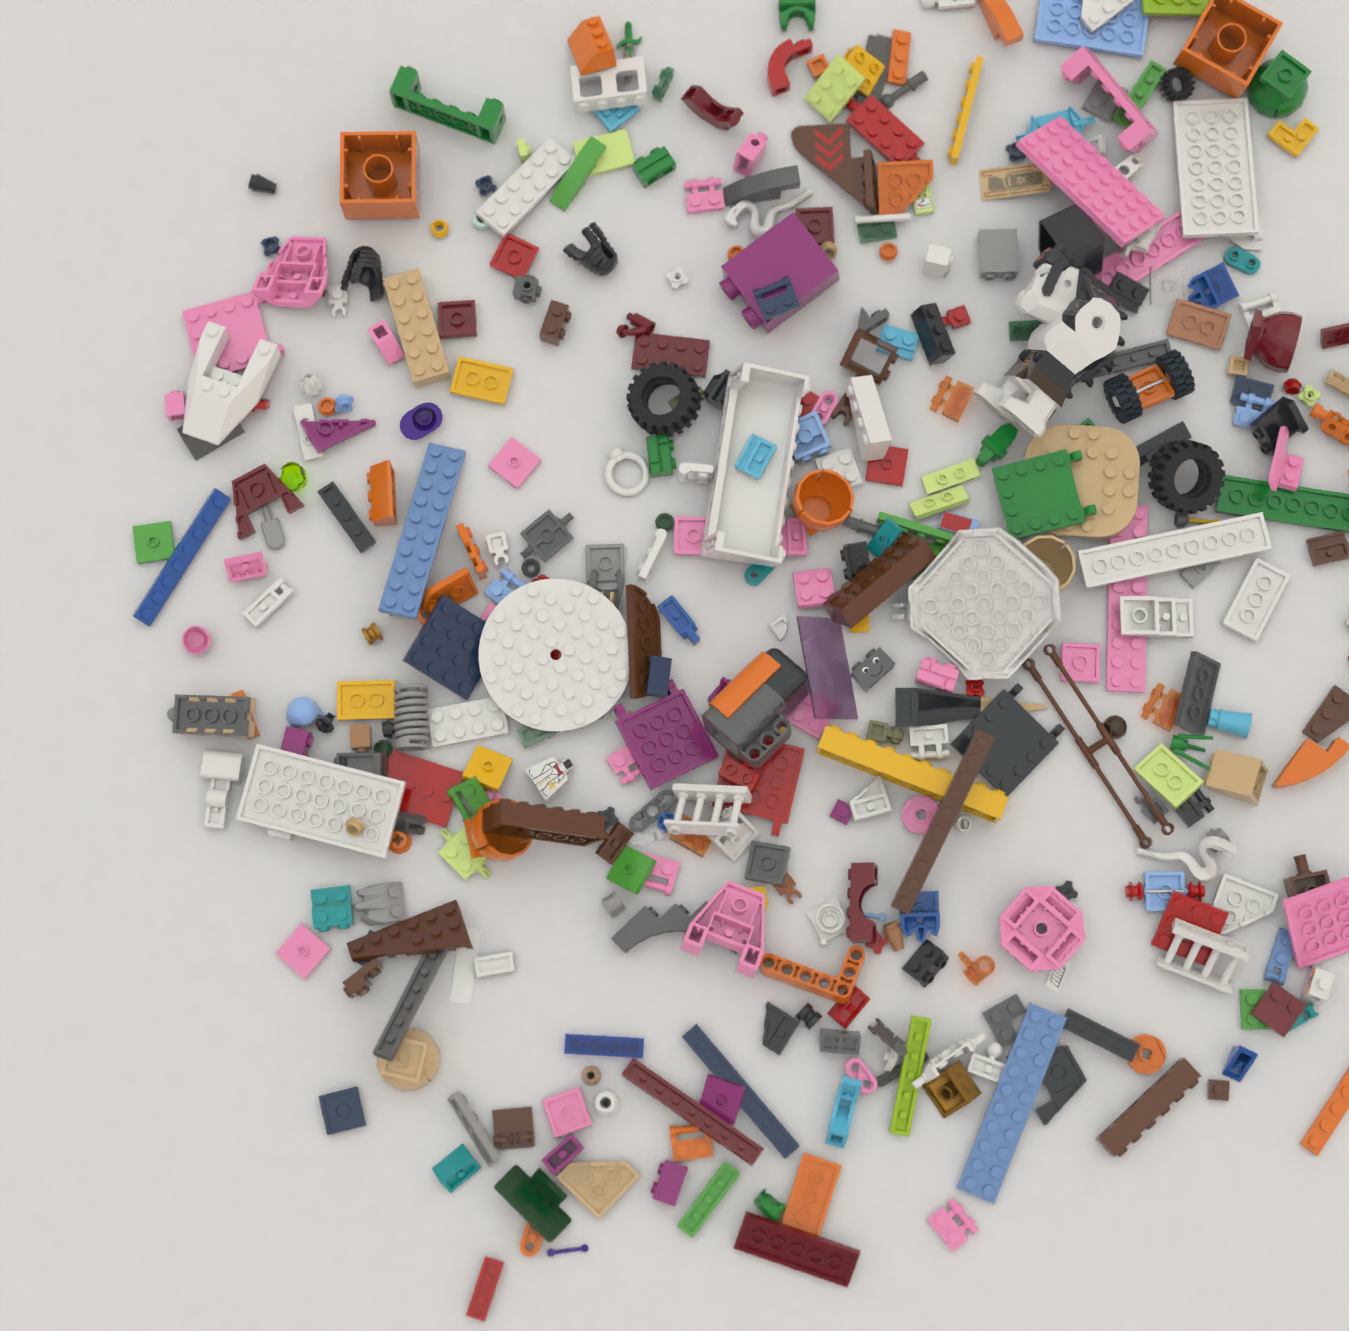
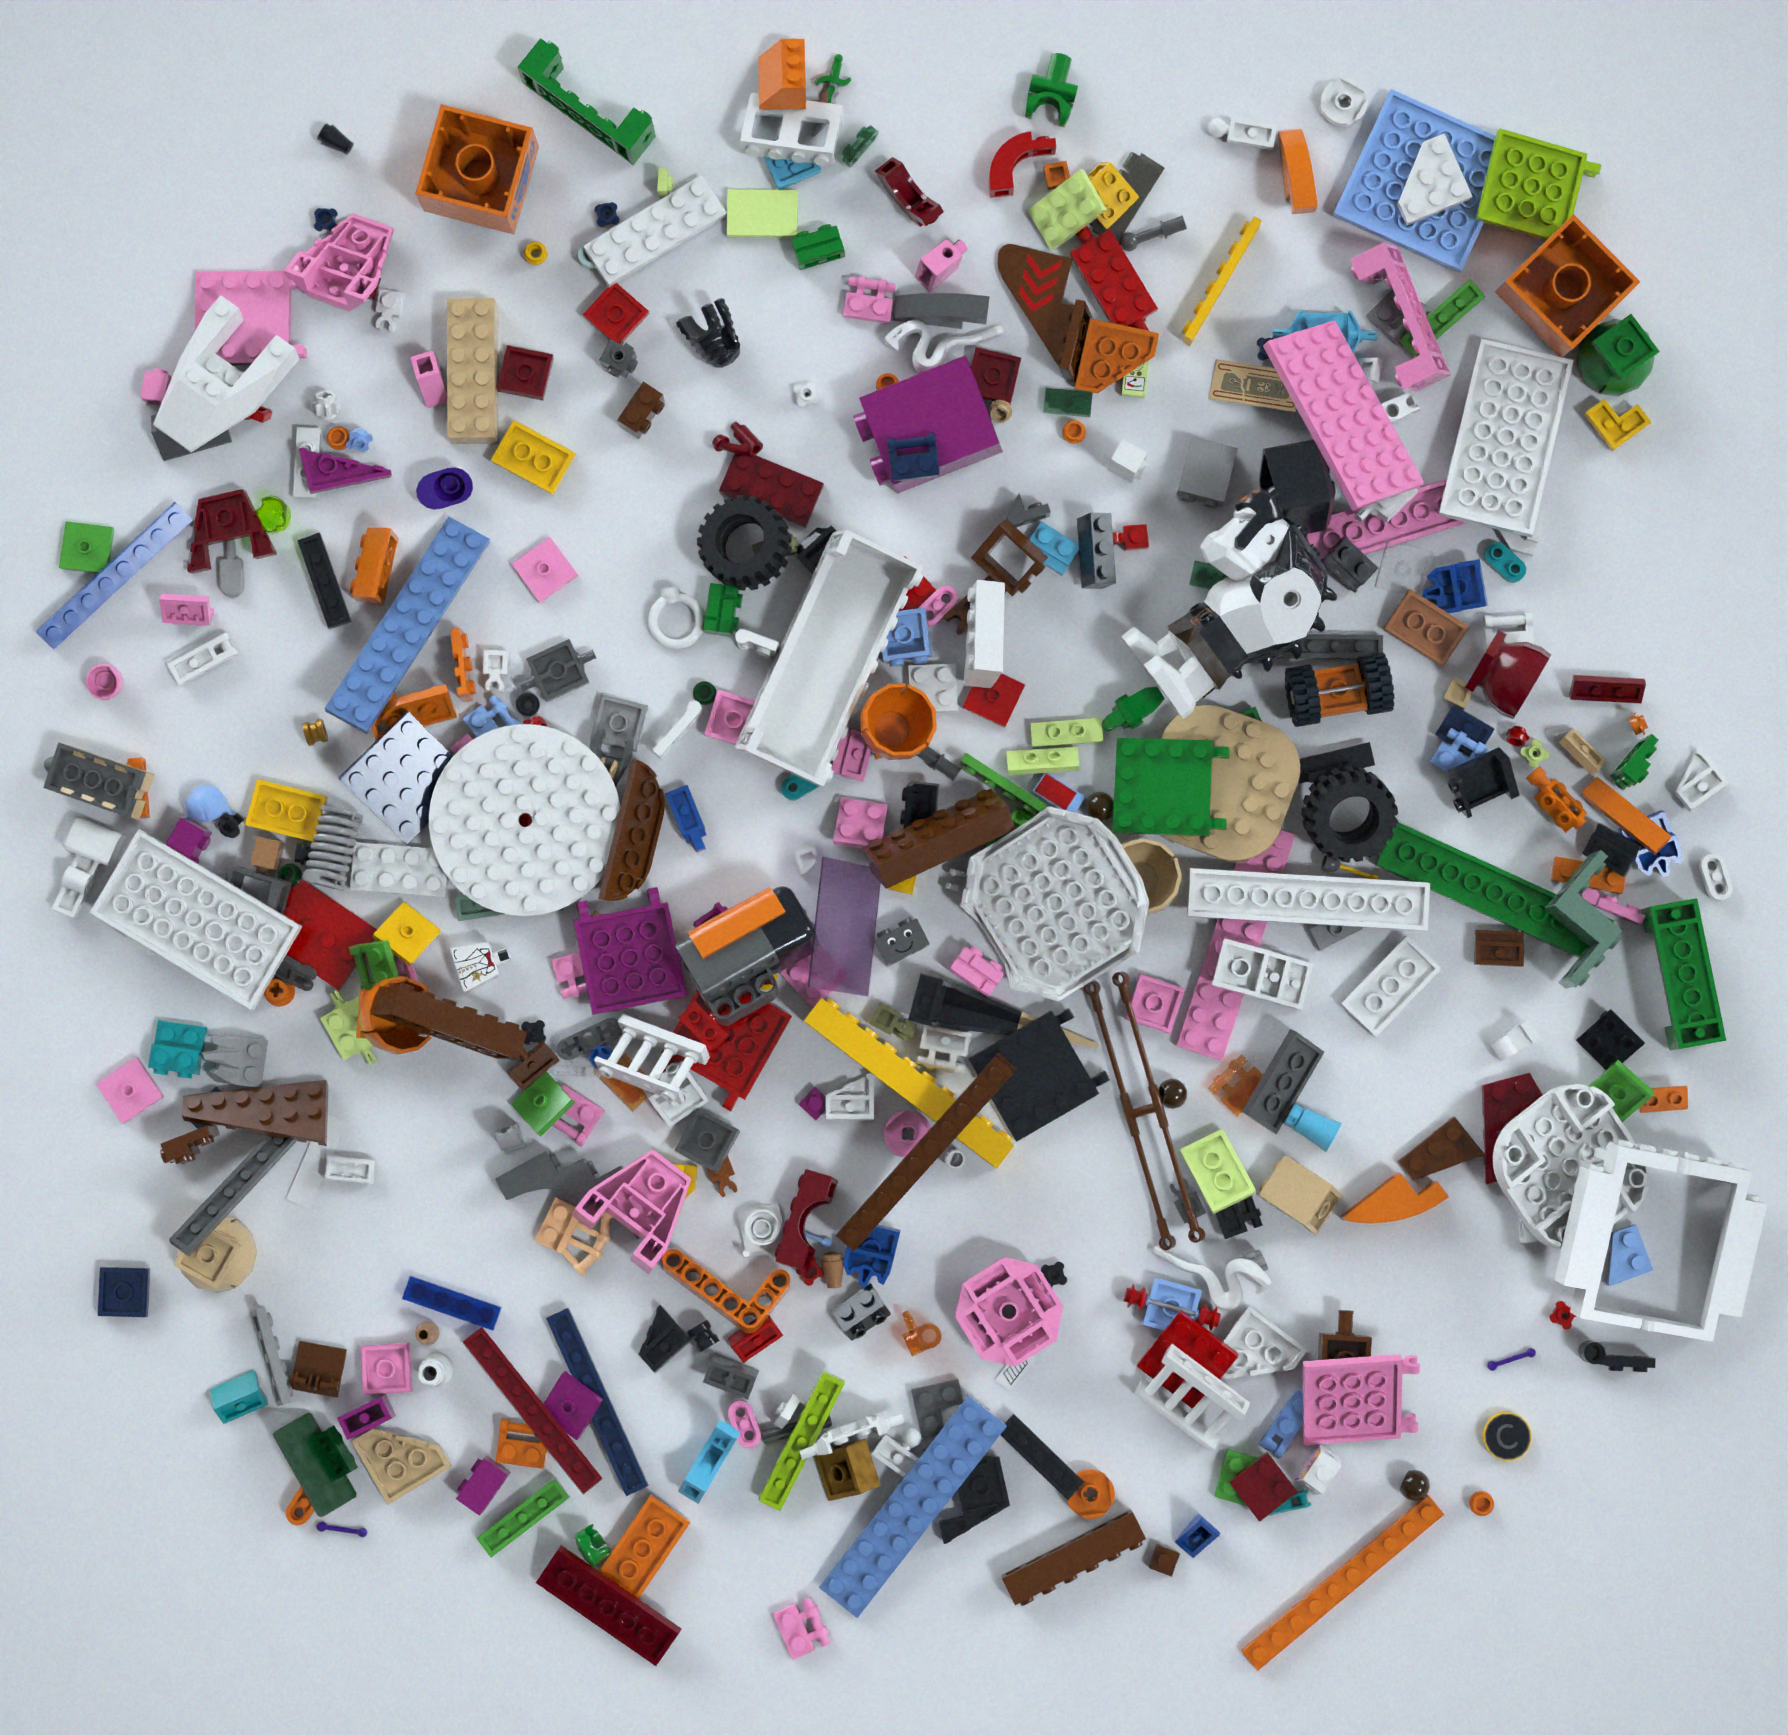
camera: 15 degrees right, 5 degrees up
(354, 826) = (224, 963): tan plate -> none
(364, 268) = (429, 278): black hair -> none
(485, 1288) = (232, 1546): red plate -> none
(577, 173) = (722, 231): bright green slope -> none
(658, 676) = (640, 880): dark blue hinge -> none
(671, 965) = (558, 1232): none -> light nougat plate
(755, 456) = (834, 645): medium azure plate -> none
(882, 218) = (1078, 389): white bar -> none
(884, 537) = (963, 785): teal plate -> none
(886, 1036) = (786, 1387): dark grey plate -> none
(898, 58) = (1159, 191): orange plate -> none
(957, 401) = (1102, 642): clear orange plate -> none
(970, 691) = (1012, 1001): red plate -> none
(993, 521) = (1100, 806): none -> dark brown piece
(1179, 744) = (1244, 1135): green plant -> none
(1186, 82) = (1505, 319): black tyre -> none
(1285, 467) = (1475, 833): bright pink plate -> none

